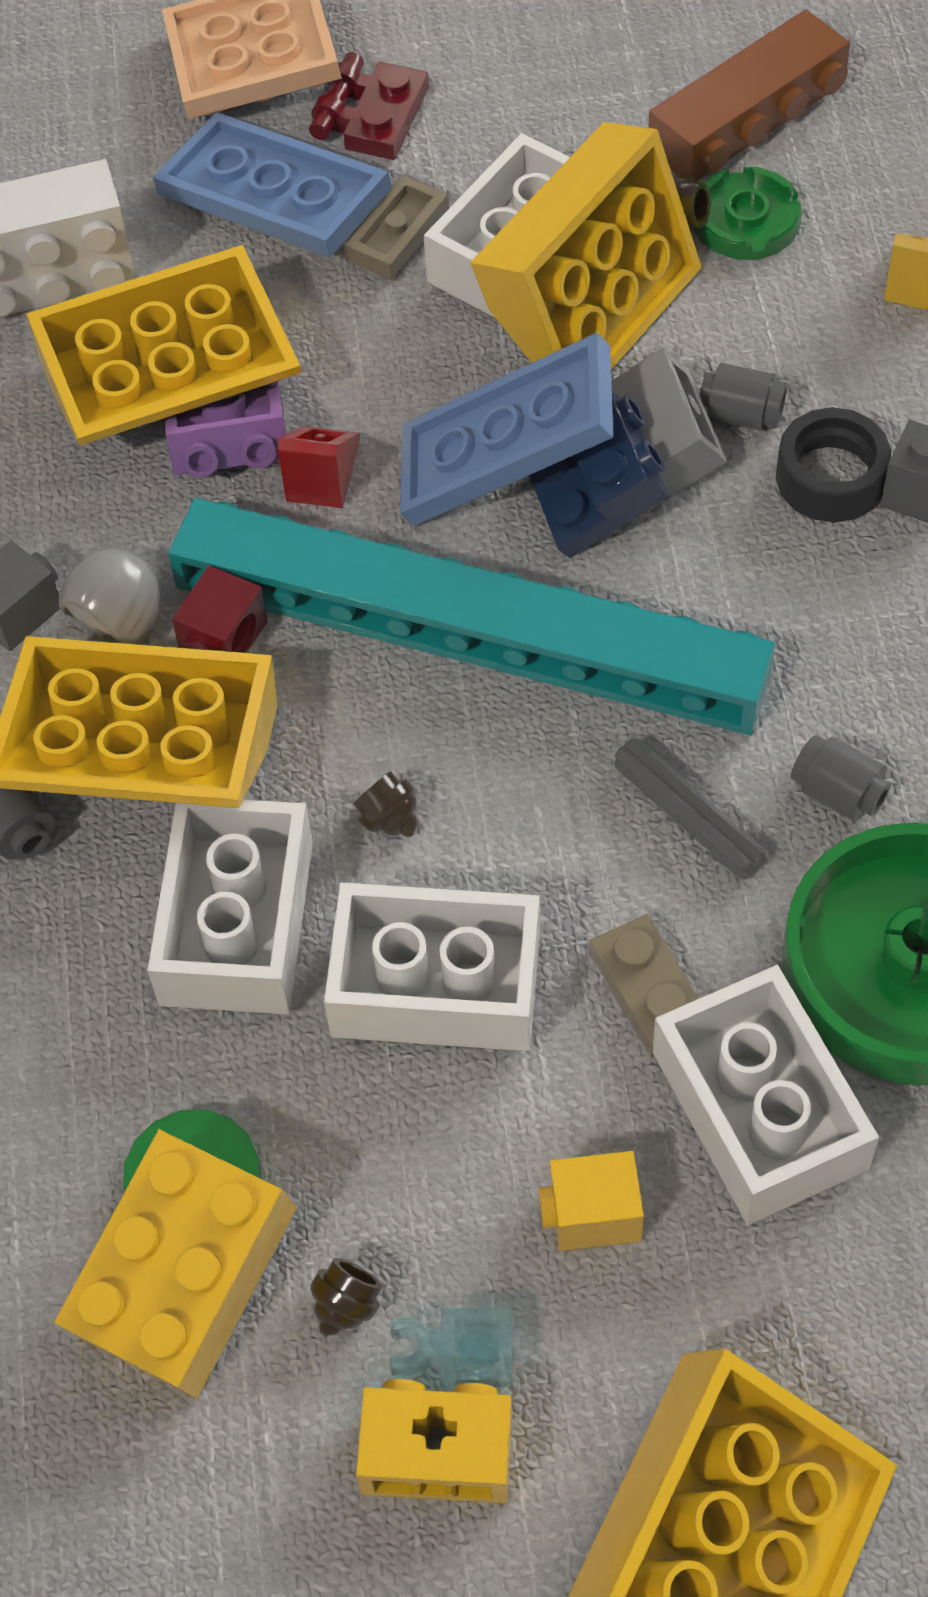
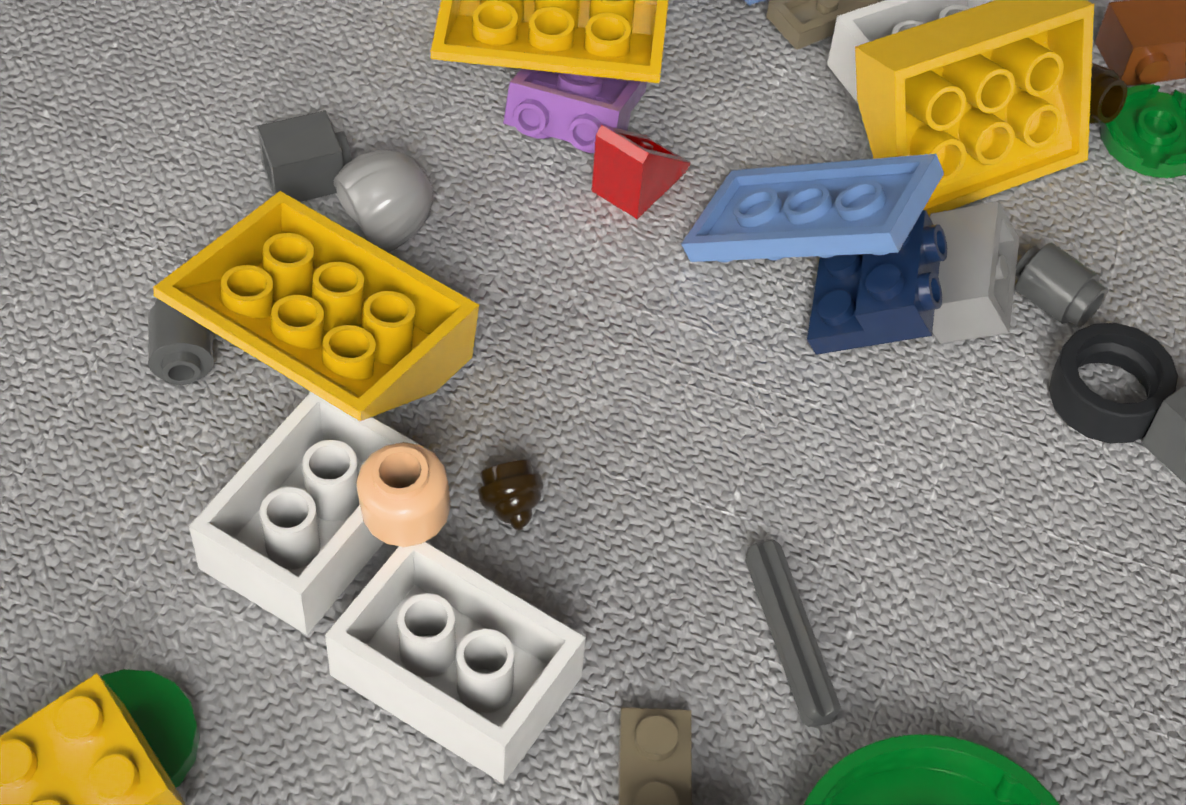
camera: 20 degrees right, 5 degrees down
(220, 614) = (467, 255): dark red brick -> none
(321, 851) = (403, 494): none -> light nougat head
(481, 616) = (704, 370): teal brick -> none
(841, 777) = (955, 675): dark grey brick -> none

